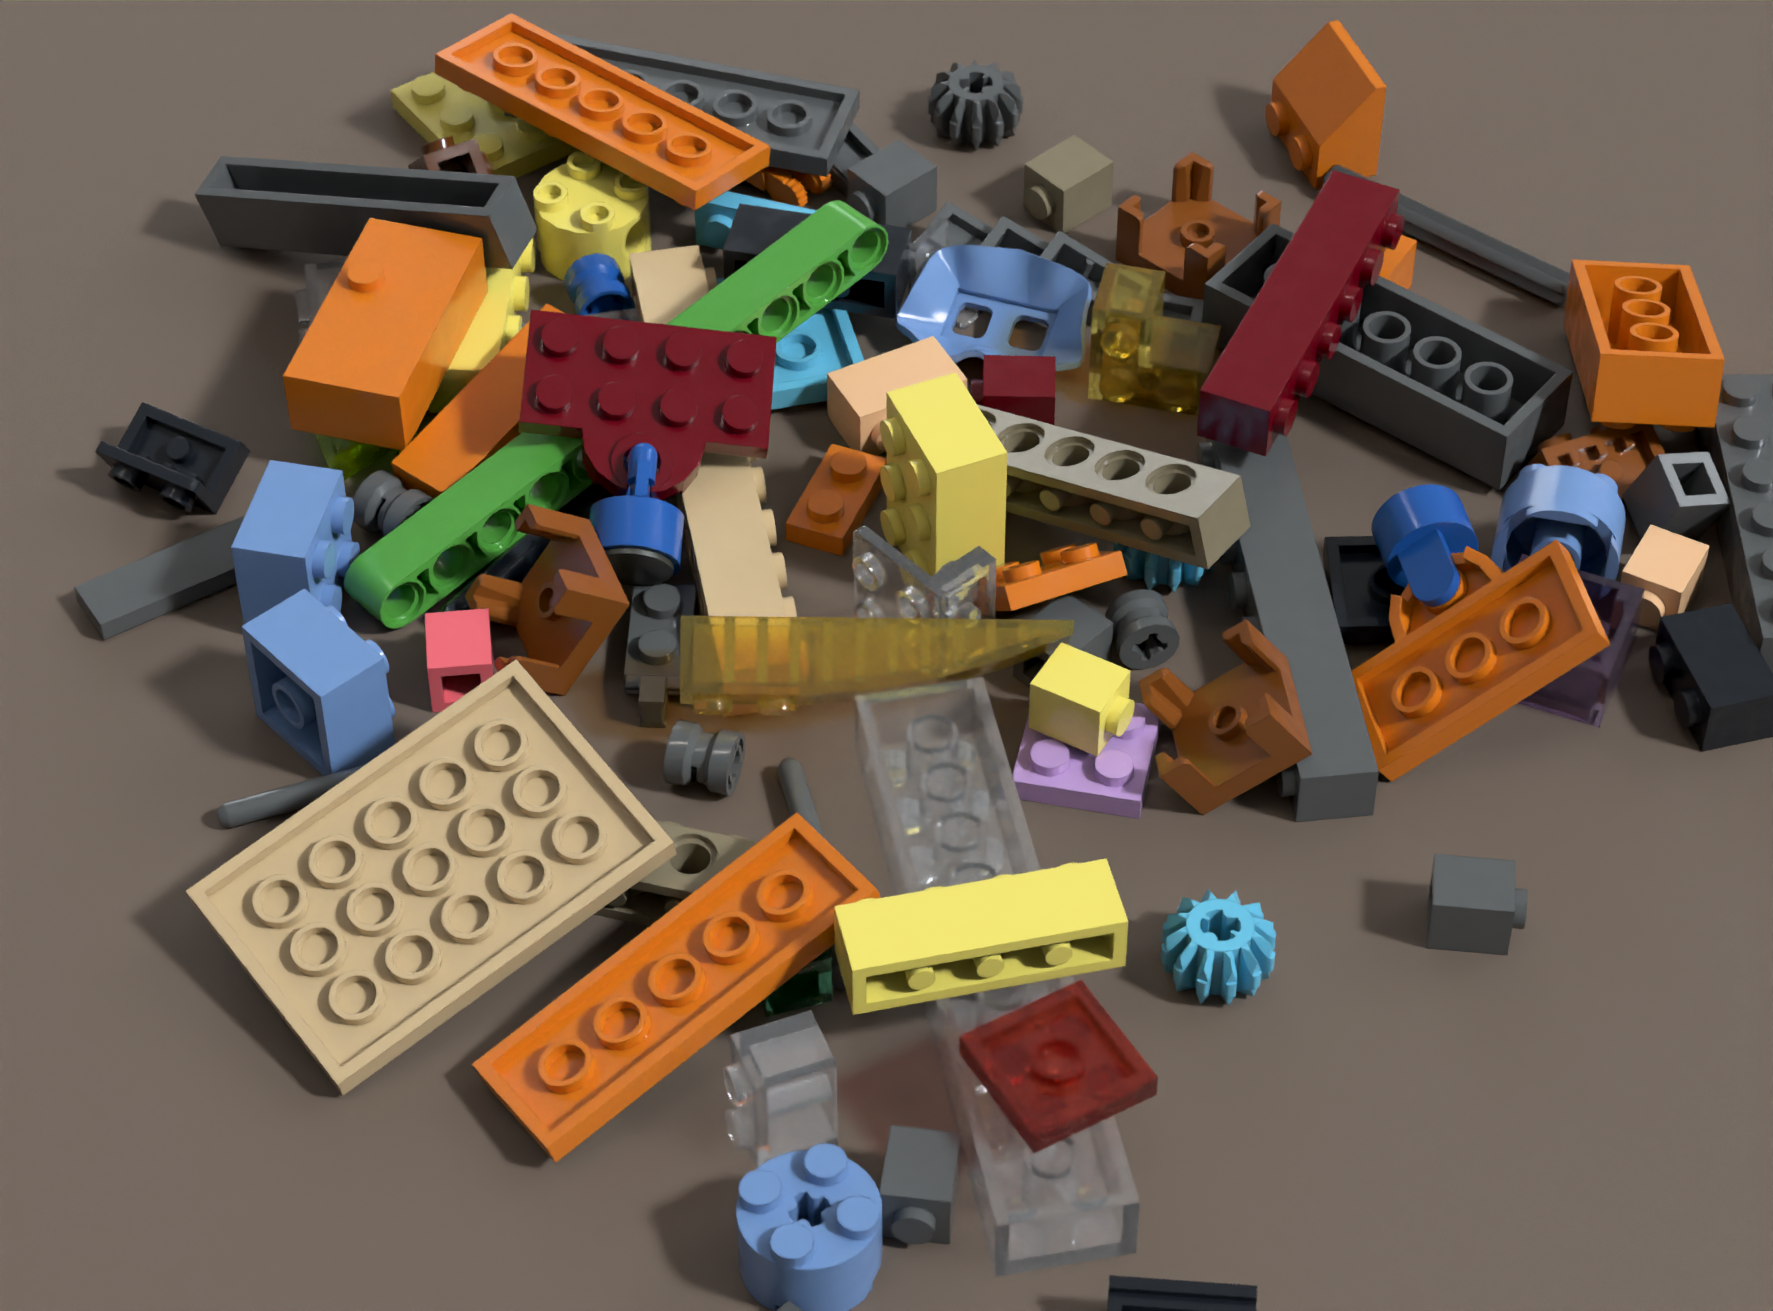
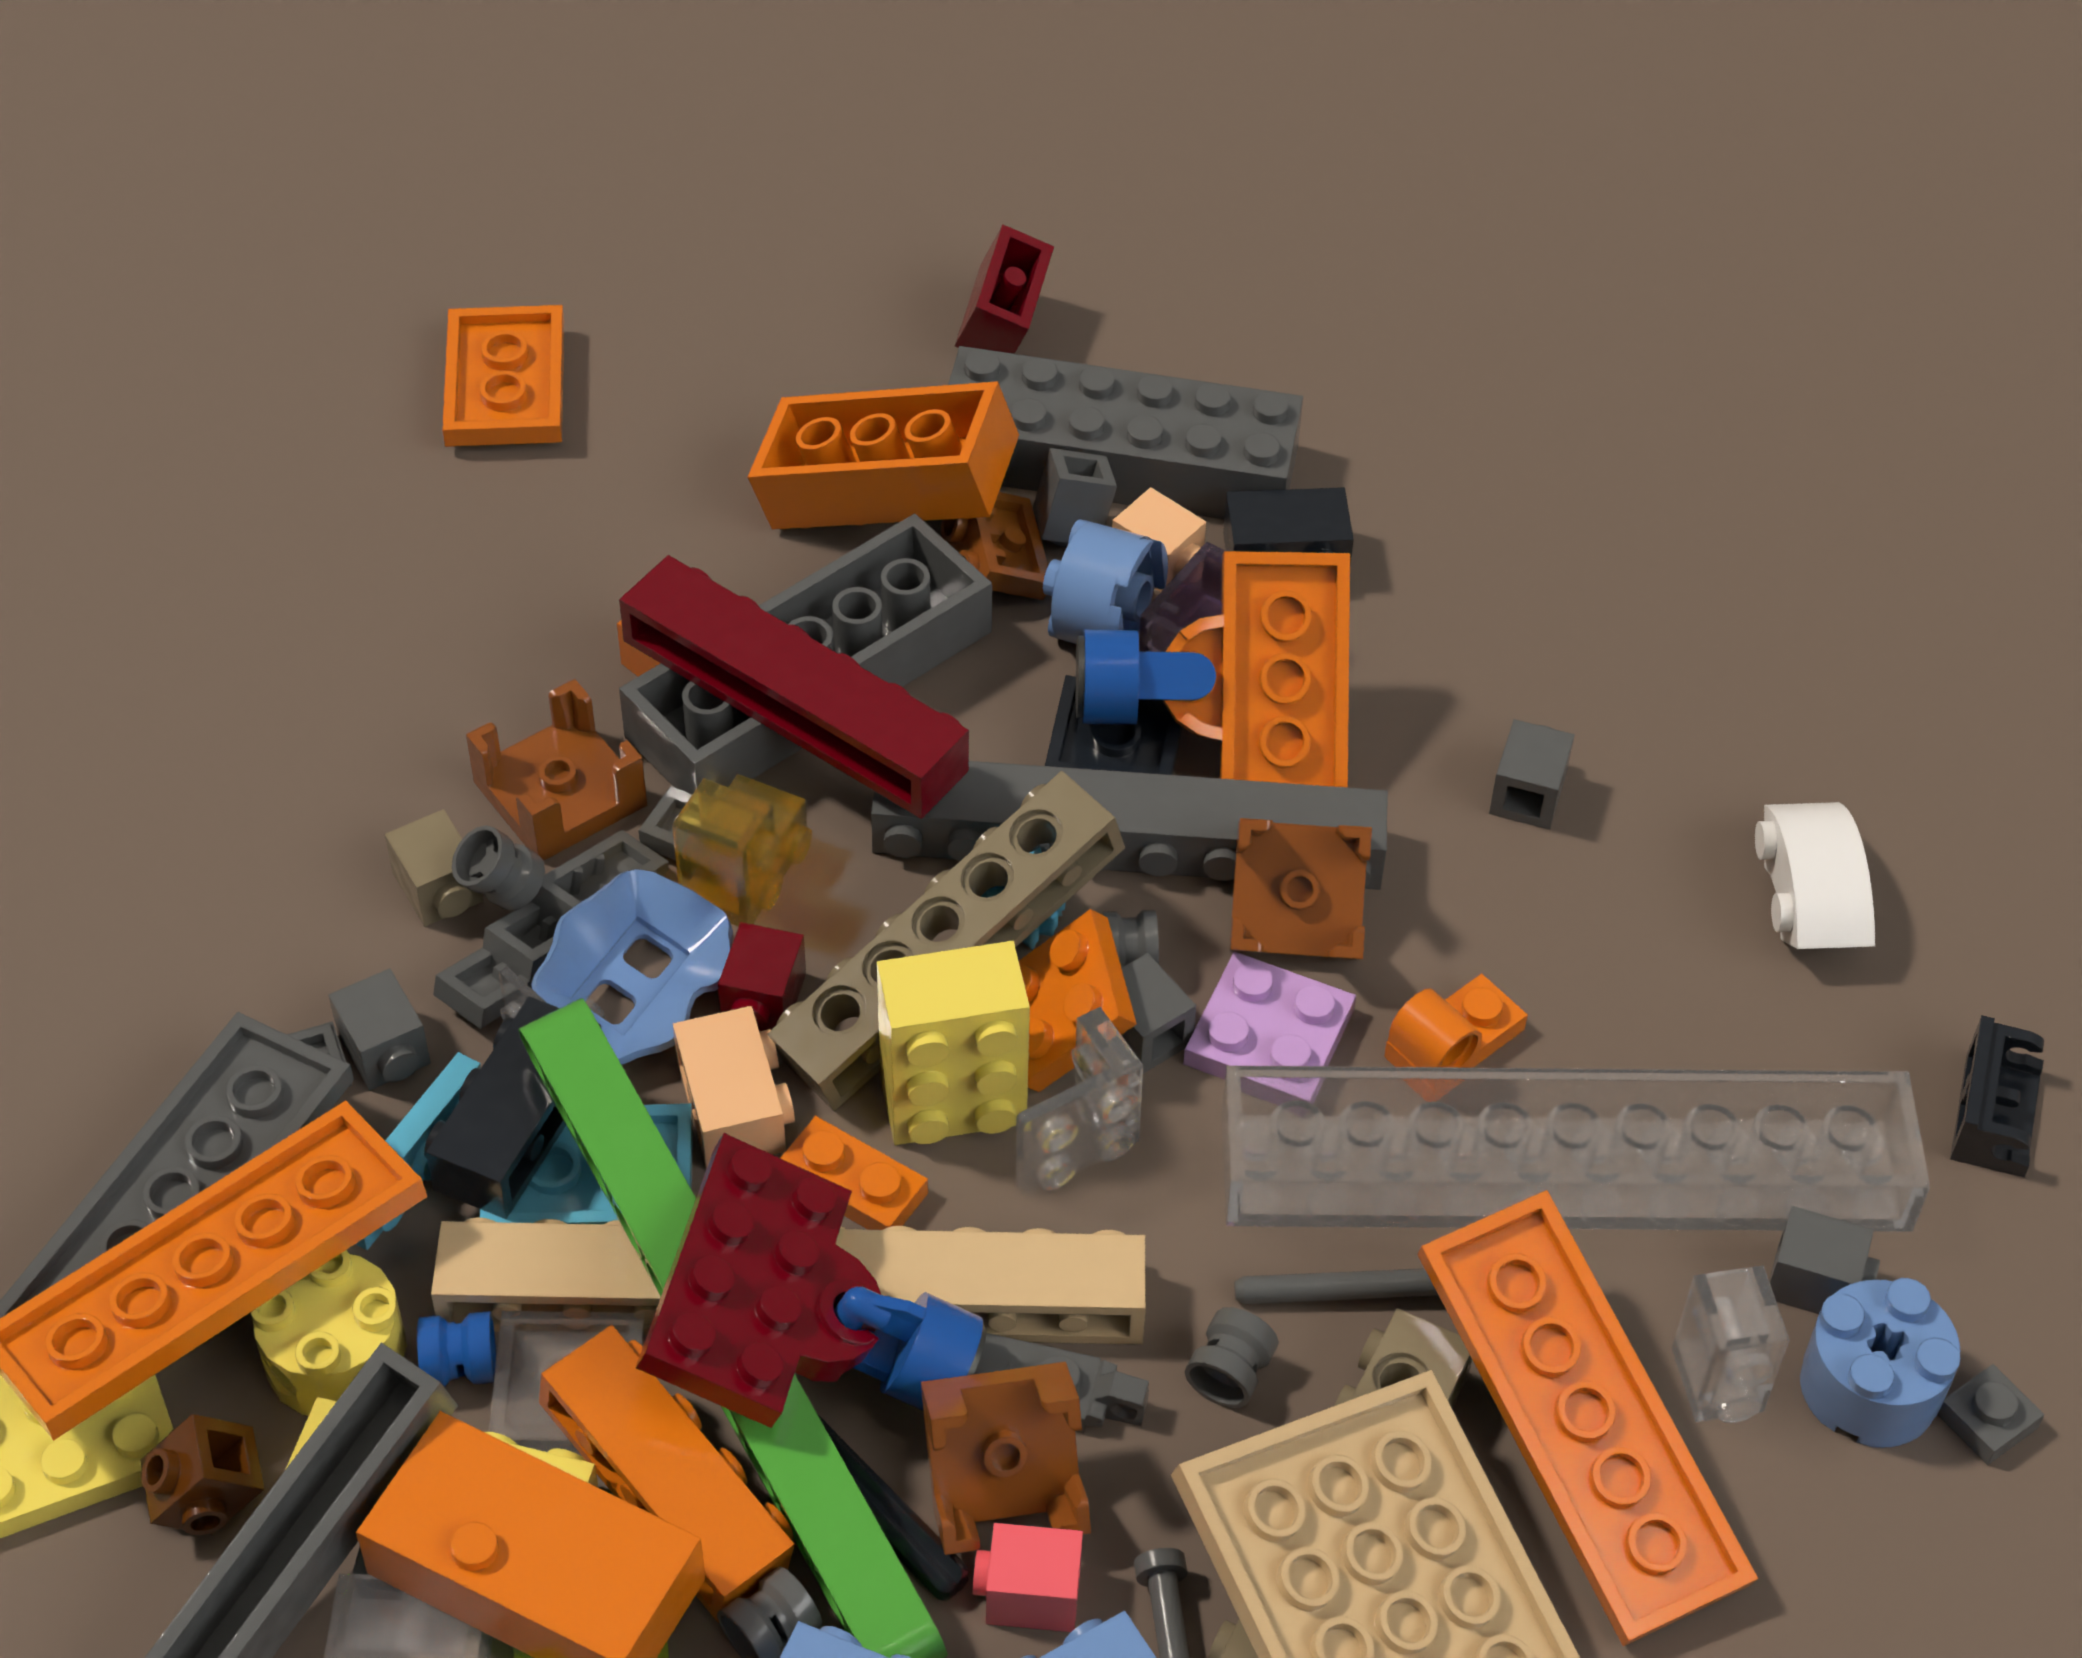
camera: 80 degrees left, 5 degrees up
(837, 658) = (1176, 1179): clear yellow slope -> none
(975, 104) = (261, 924): dark grey gear -> none
(980, 936) = (1607, 1121): light yellow brick -> none
(1054, 199) = (495, 866): none -> dark grey wheel
(1057, 1066) = (1770, 1092): clear red plate -> none
(1080, 699) = (1255, 998): light yellow brick -> none
(1143, 889) = (1453, 1029): none -> orange plate
(1218, 946) = (1556, 970): medium azure gear -> none
(1328, 107) = (421, 611): orange slope -> none
(1415, 1147) = (1817, 875): none -> white brick
(1478, 248) = (611, 582): dark grey axle -> none
(1661, 113) = (504, 376): none -> orange plate

